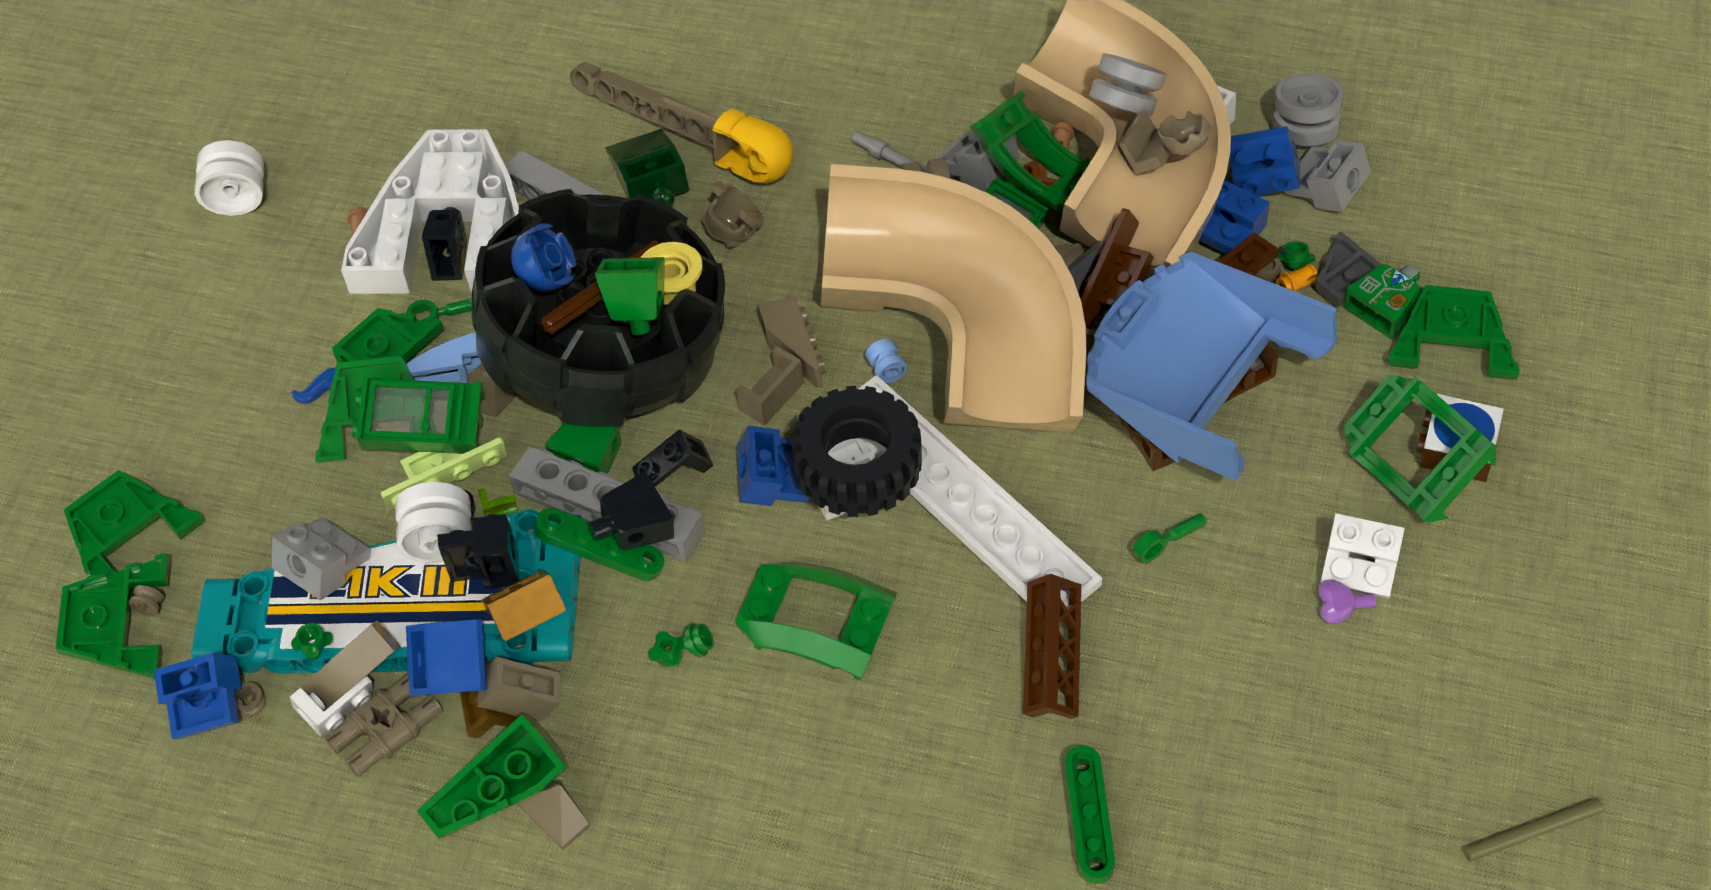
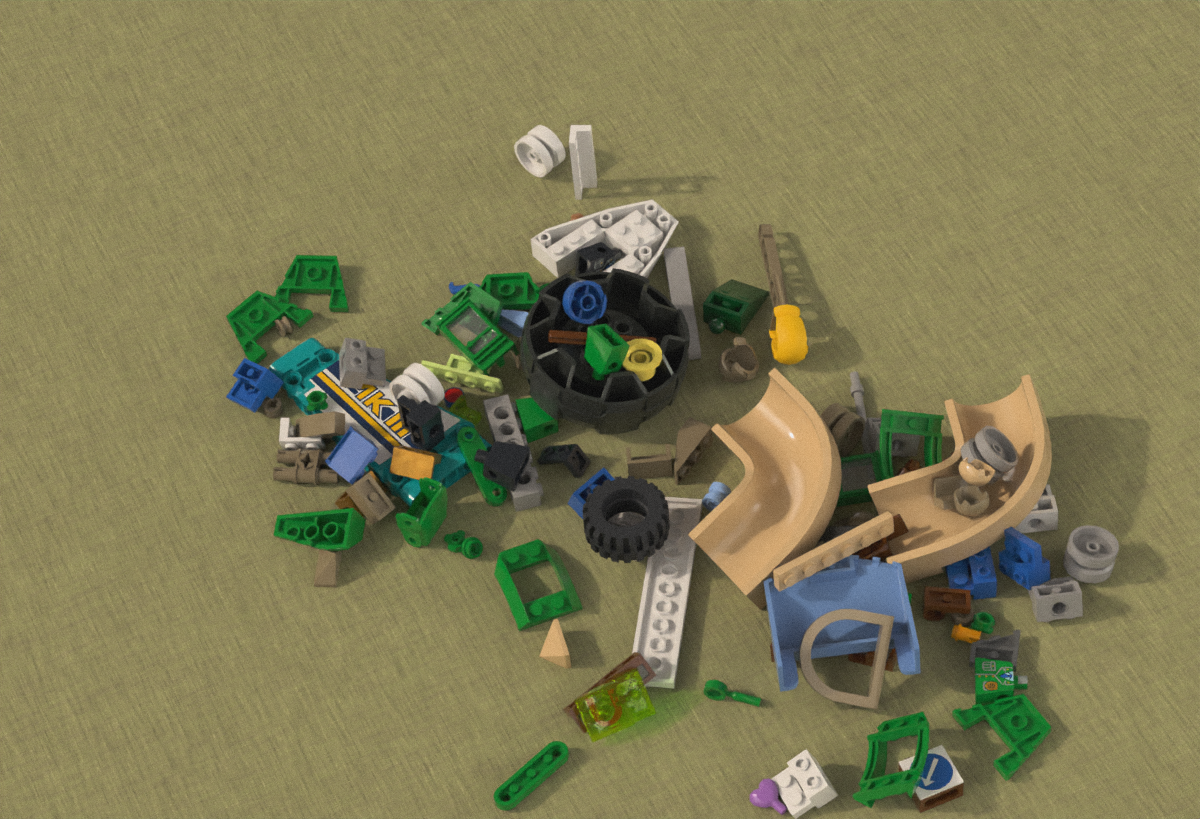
camera: 50 degrees right, 5 degrees down
(303, 142) = (582, 159): none -> white fence
(605, 652) = (425, 513): none -> green piece
(930, 656) = (555, 647): none -> tan slope
(1085, 651) = (615, 705): none -> clear neon green slope
(1120, 301) = (833, 551): none -> tan plate
(1154, 103) = (976, 472): none -> tan hair
(1281, 368) = (885, 623): none -> dark tan window

